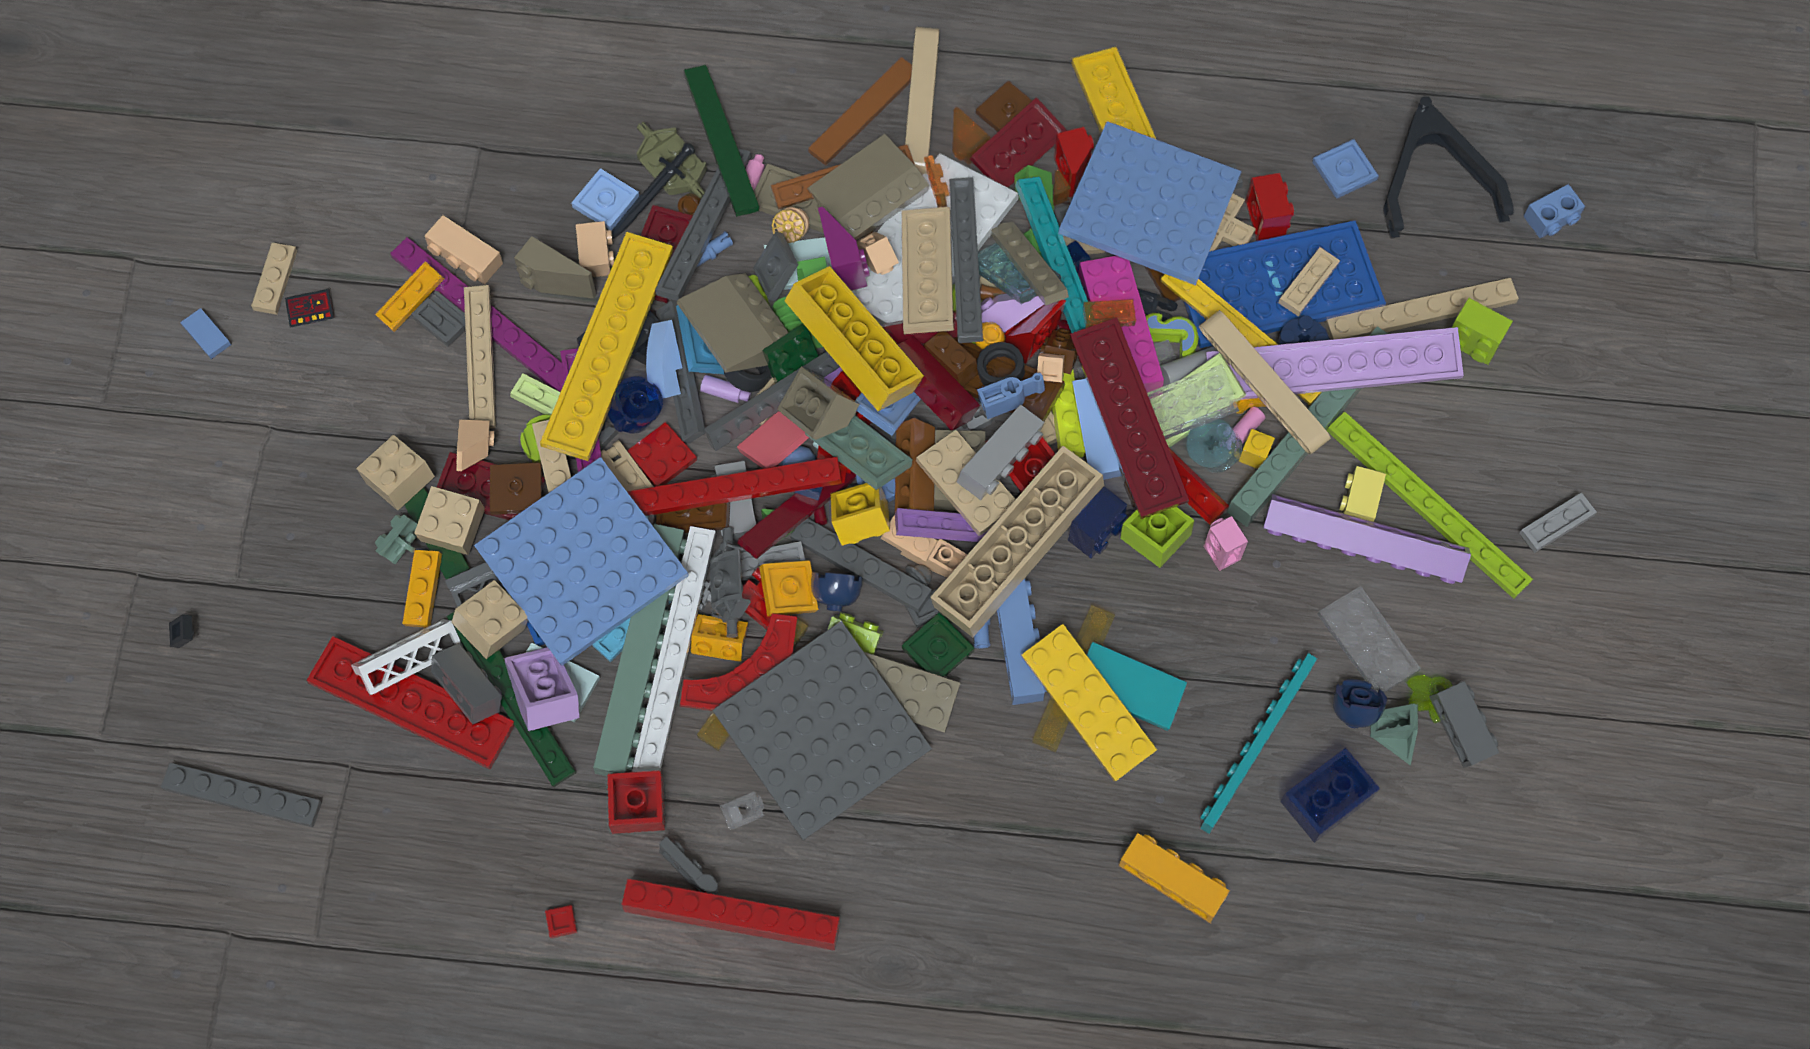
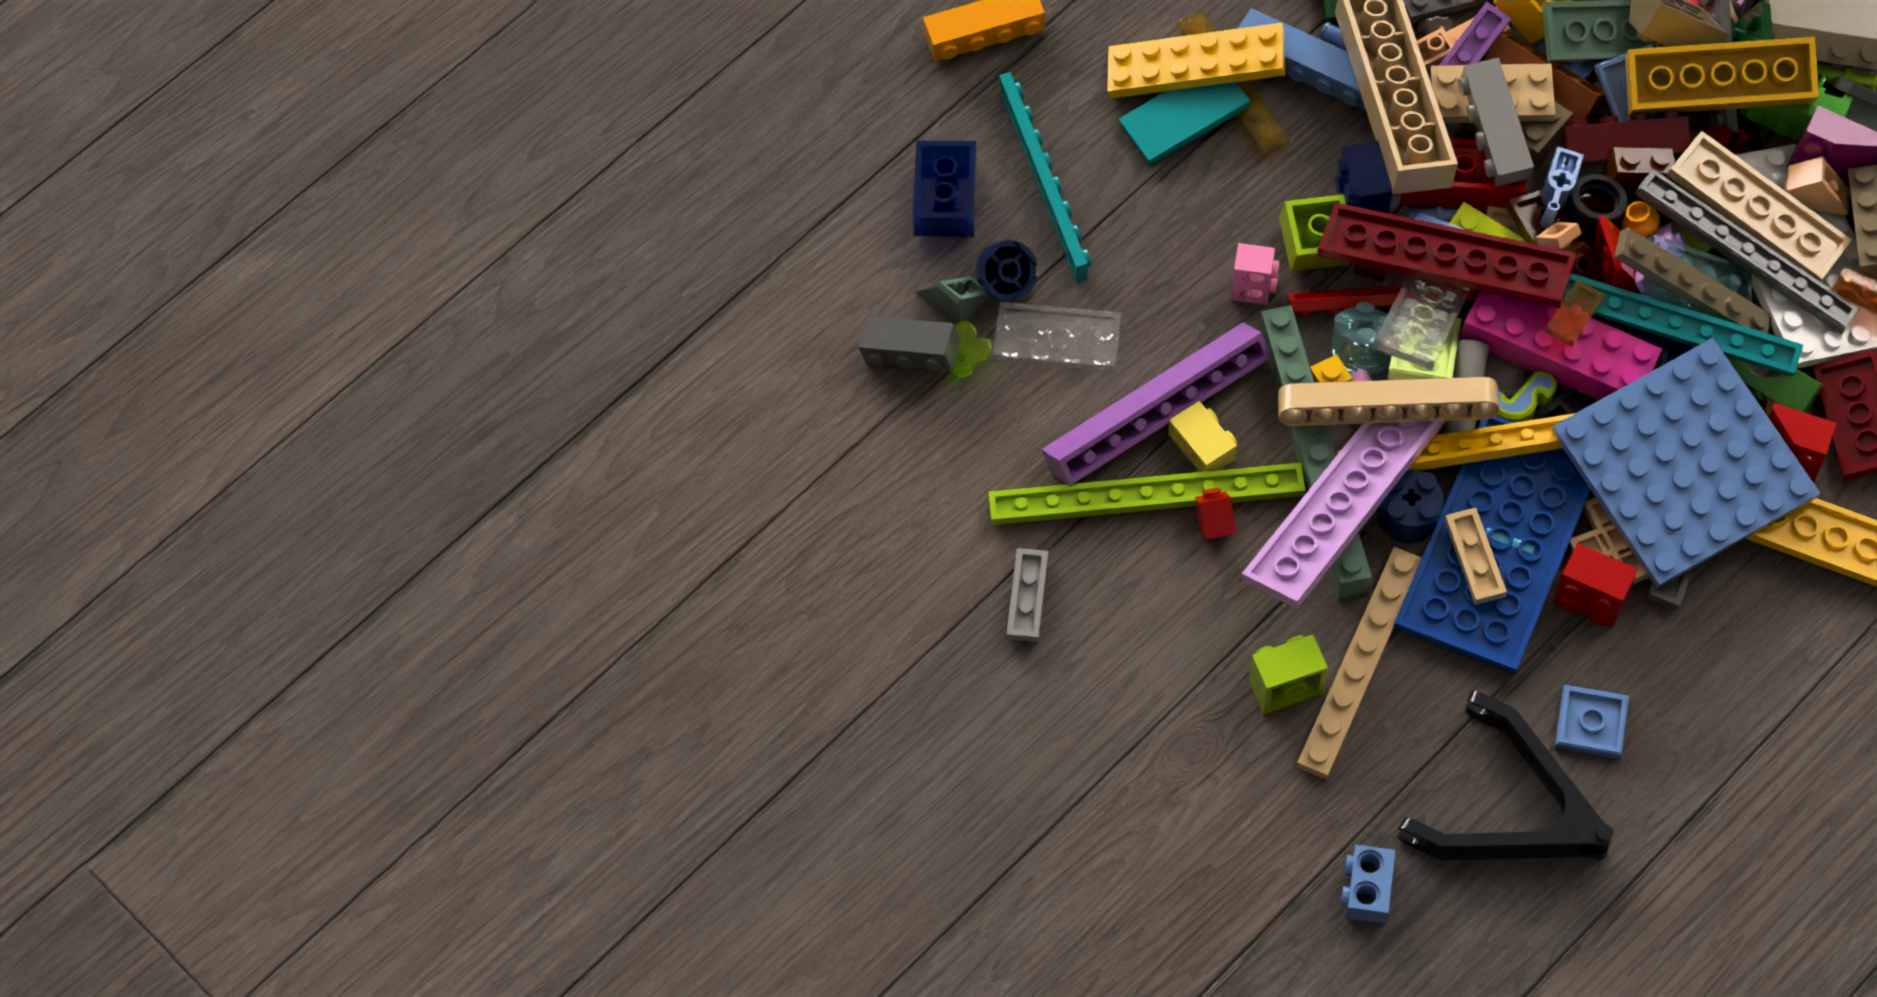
camera: 135 degrees right, 5 degrees down
(1411, 447) = (1215, 514): none -> red brick

